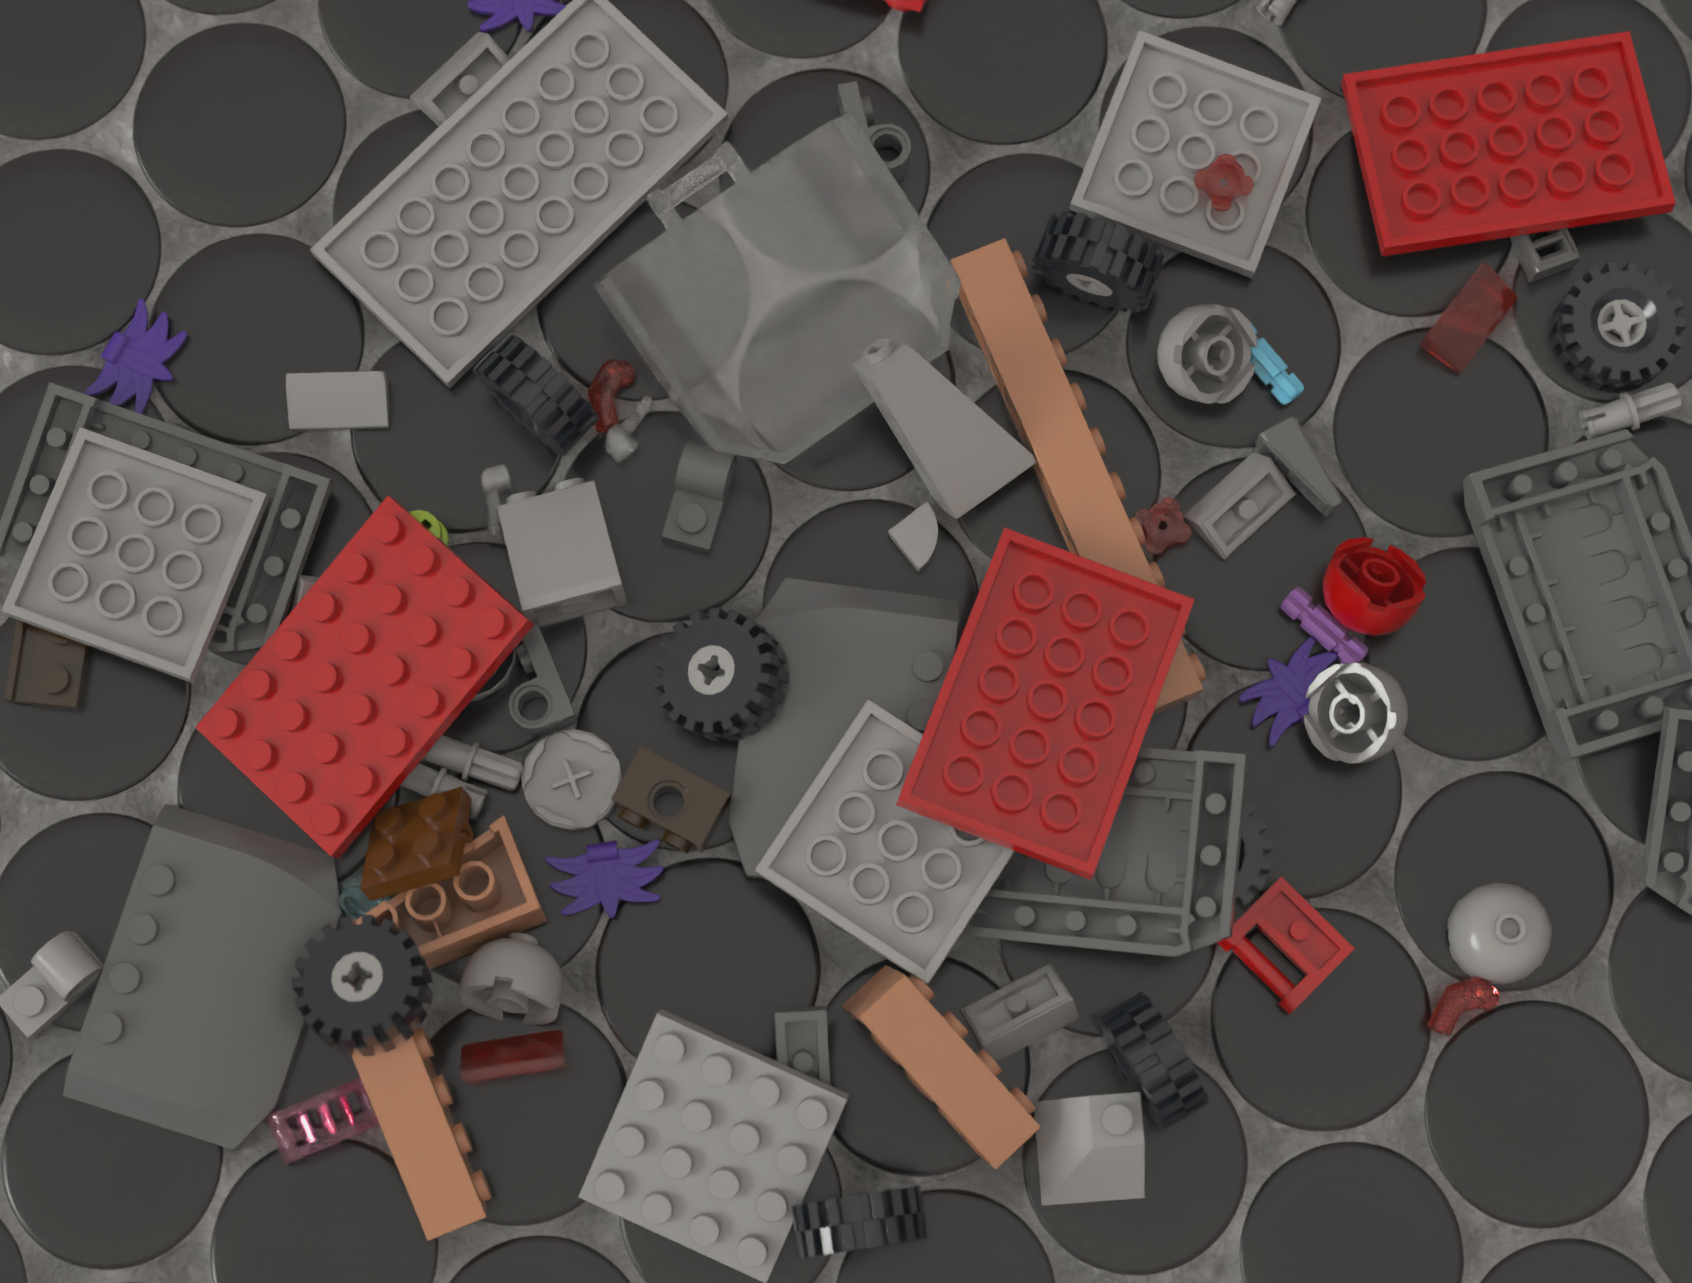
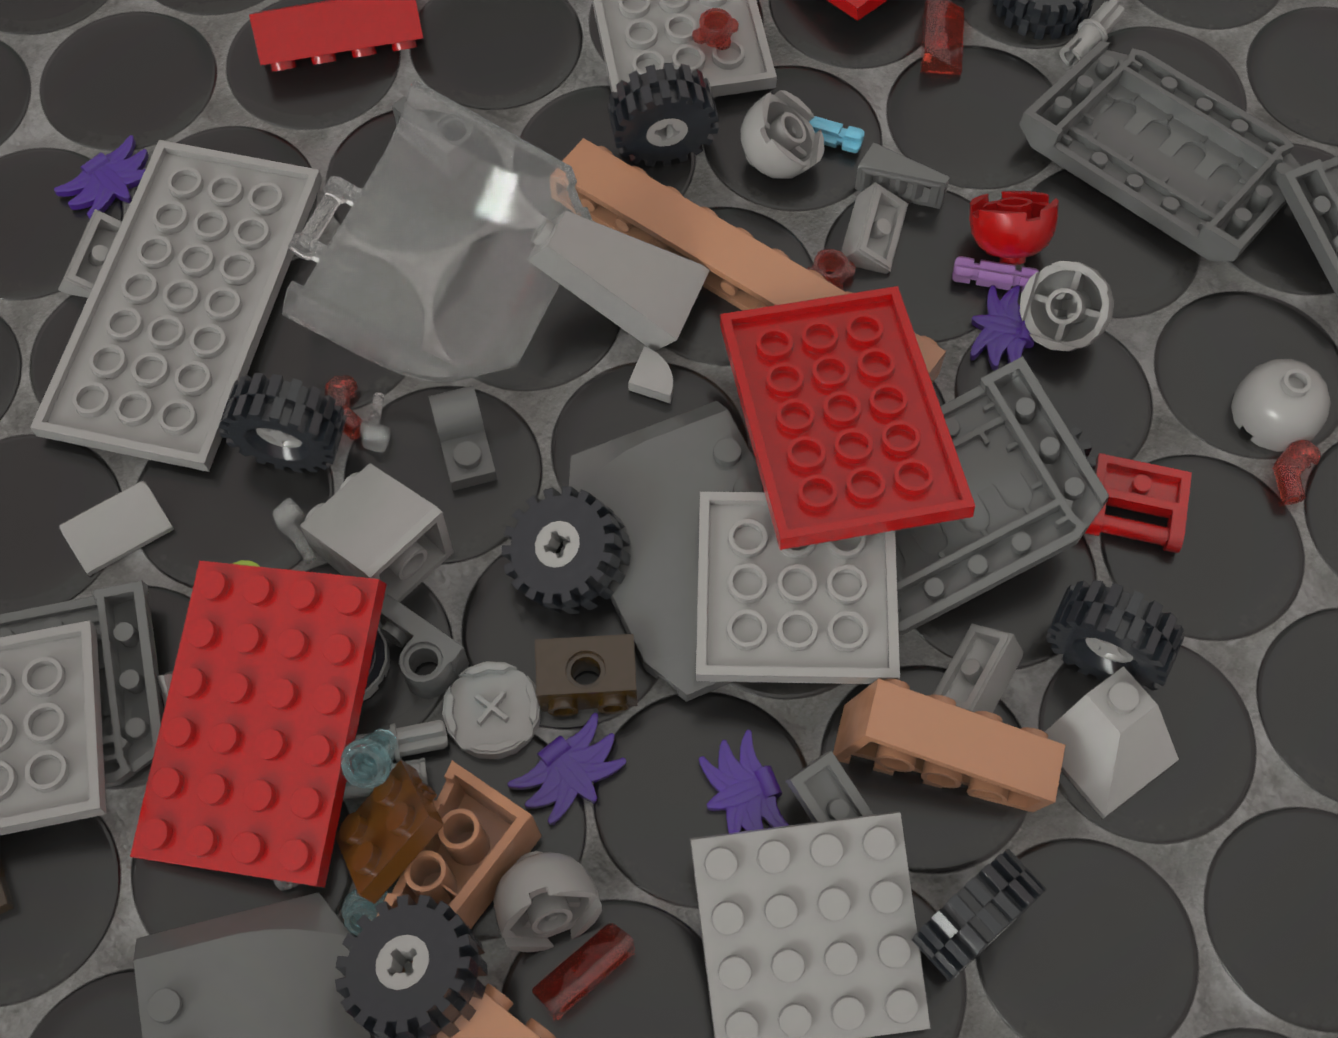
camera: 30 degrees left, 15 degrees down
(434, 773) = (369, 759): none -> clear light blue cone
(745, 989) = (743, 788): none -> dark purple piece

